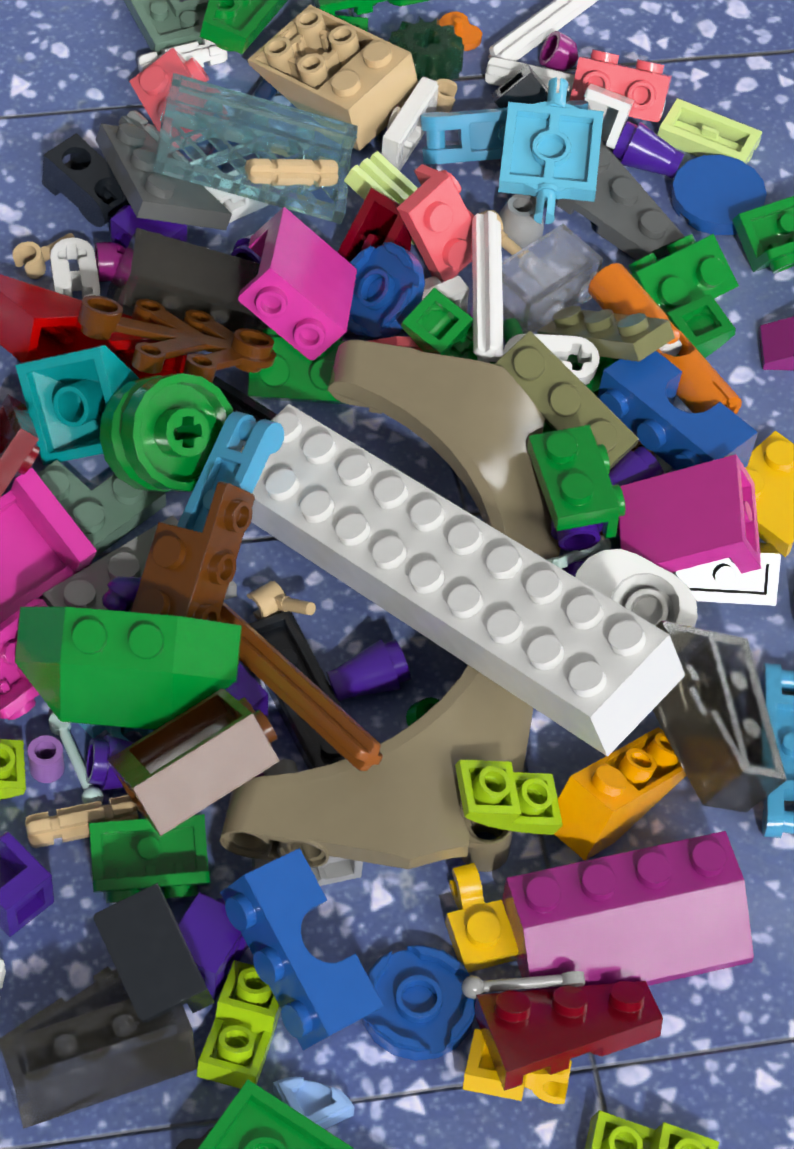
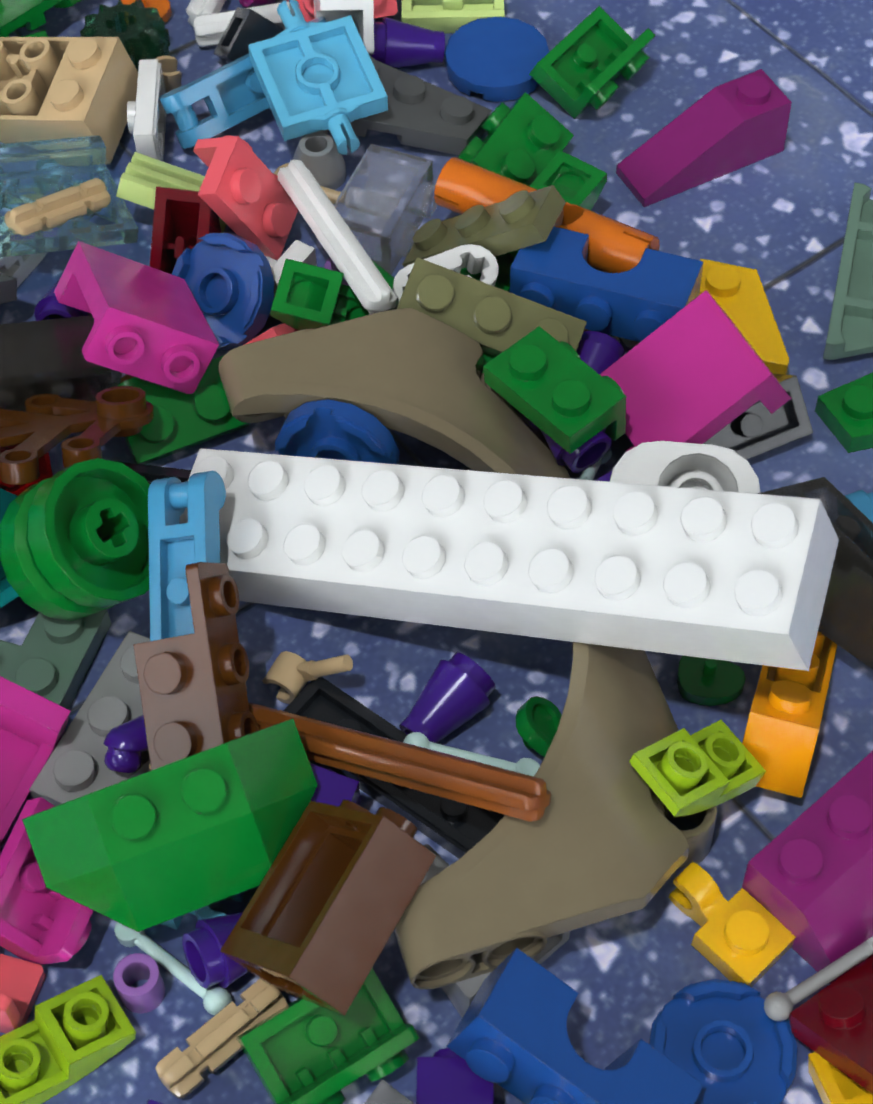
camera: 20 degrees left, 0 degrees up
(331, 689) = (525, 765): none -> light aqua hinge
(397, 441) = (336, 432): none -> blue tile
(572, 751) = (709, 680): none -> green piece

